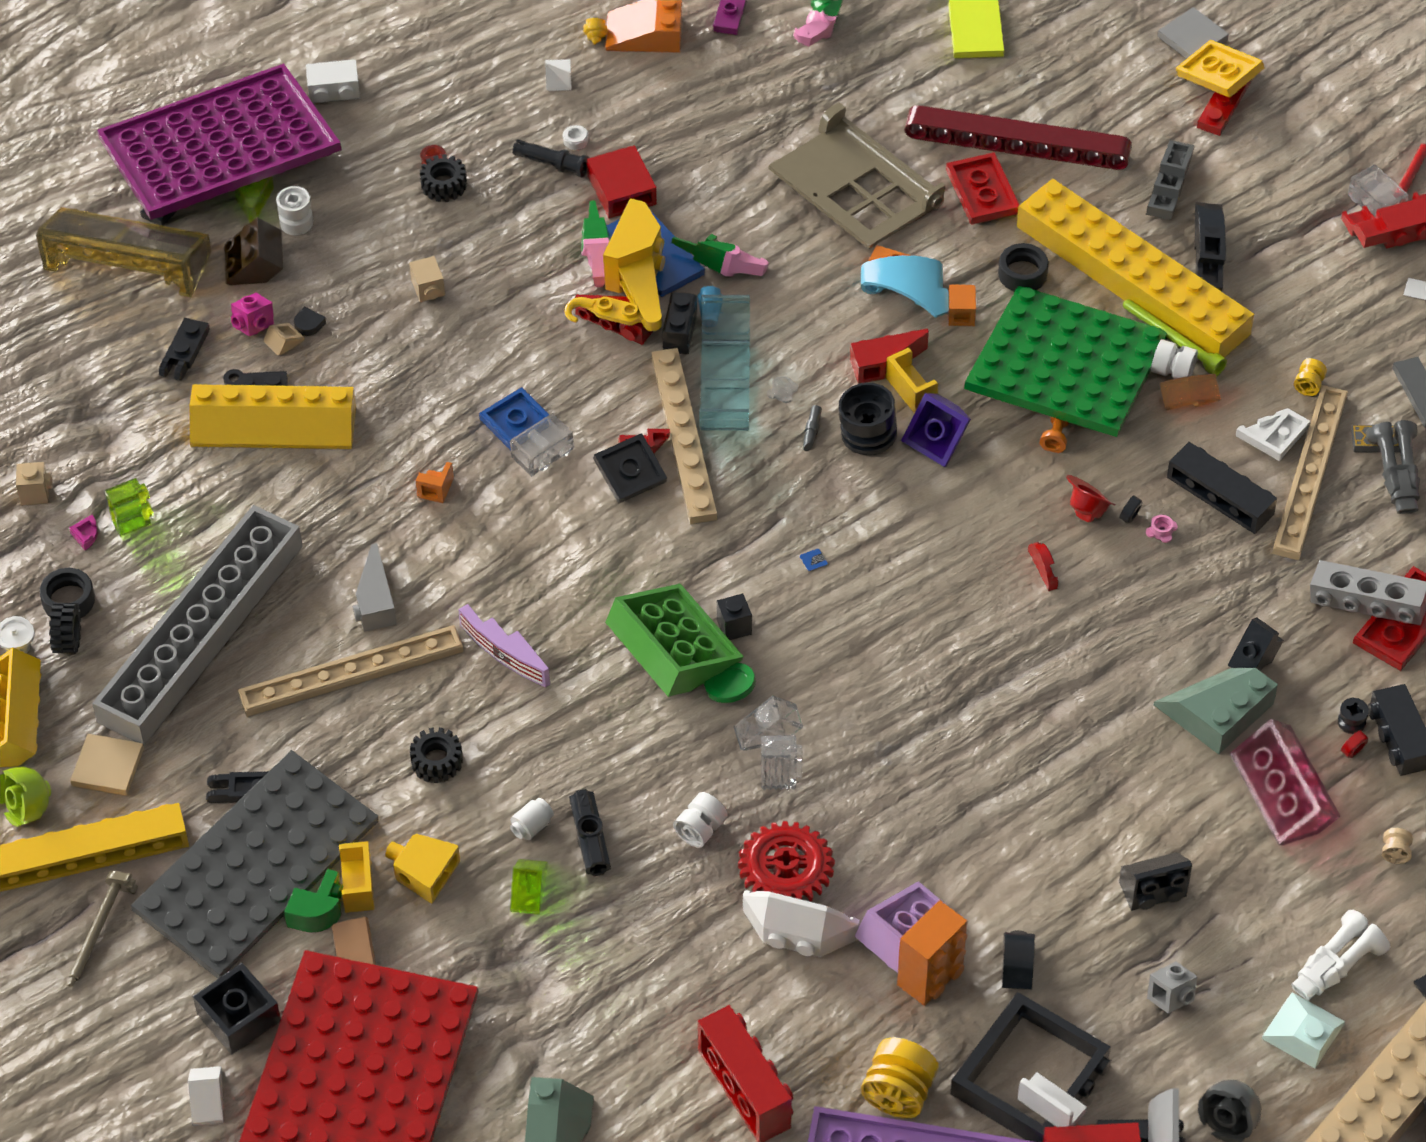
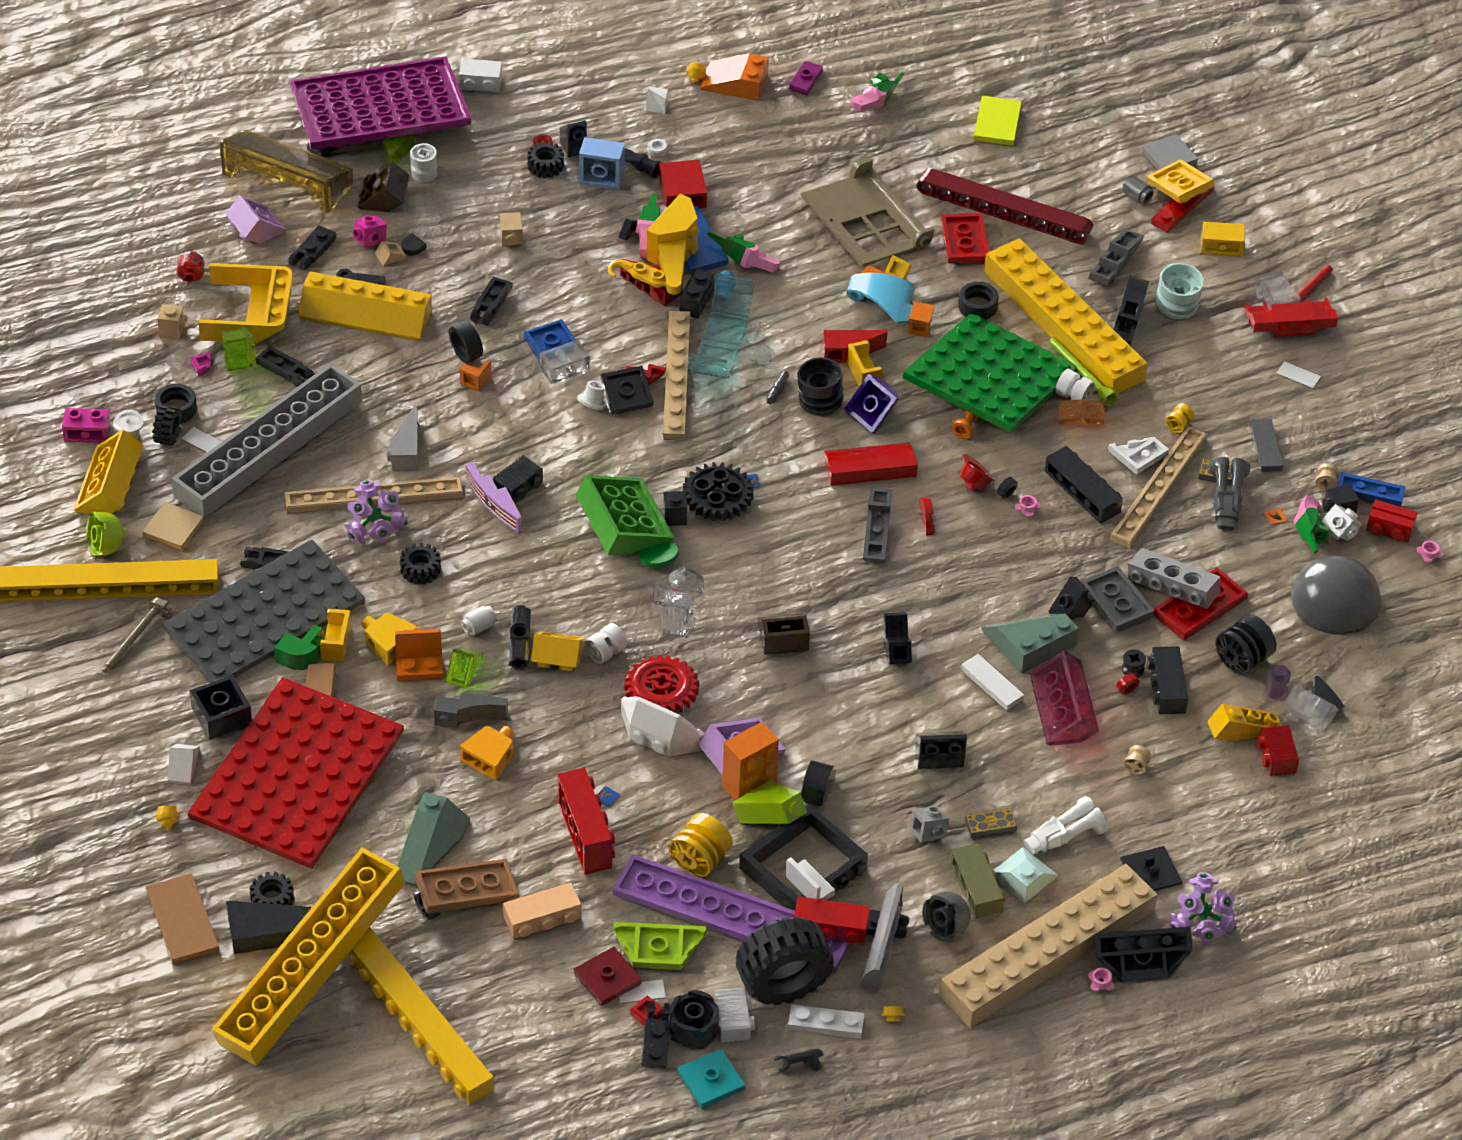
camera: 10 degrees right, 5 degrees down
(37, 404) = (190, 266): none -> red head
(102, 326) = (254, 220): none -> lavender slope
(114, 638) = (201, 439): none -> white sticker
(148, 436) = (267, 301): none -> yellow windscreen
(192, 517) = (284, 366): none -> black hinge
(350, 699) = (364, 510): none -> lavender plant
(413, 441) = (465, 341): none -> black tyre
(427, 377) = (491, 299): none -> black hinge
(470, 884) = (419, 655): none -> orange bracket
(471, 144) = (572, 137): none -> black slope
(516, 171) = (601, 163): none -> light blue brick
(529, 613) = (519, 478): none -> black brick
(556, 941) = (471, 707): none -> dark grey slope
(571, 245) = (628, 226): none -> black tile
(590, 484) = (593, 396): none -> white piece
(593, 998) = (488, 751): none -> light orange torso
(642, 840) = (557, 650): none -> yellow slope
(758, 1027) = (608, 796): none -> blue sticker
(780, 576) = (718, 491): none -> black gear
(915, 243) = (898, 267): none -> yellow plate
(917, 759) = (784, 633): none -> dark brown slope
(955, 508) = (870, 463): none -> red slope
(970, 1003) = (770, 805): none -> lime slope
(988, 591) = (877, 524): none -> dark grey slope
(1056, 742) = (896, 638): none -> black brick
(1171, 88) = (1138, 190): none -> flat silver brick
(1188, 774) = (992, 682): none -> white tile
(1243, 967) = (990, 823): none -> dark grey tile
(1252, 1052) = (977, 880): none -> olive brick
(1262, 211) = (1179, 291): none -> light aqua wheel
(1290, 133) = (1222, 238): none -> yellow panel
(1308, 632) = (1118, 599): none -> dark grey plate

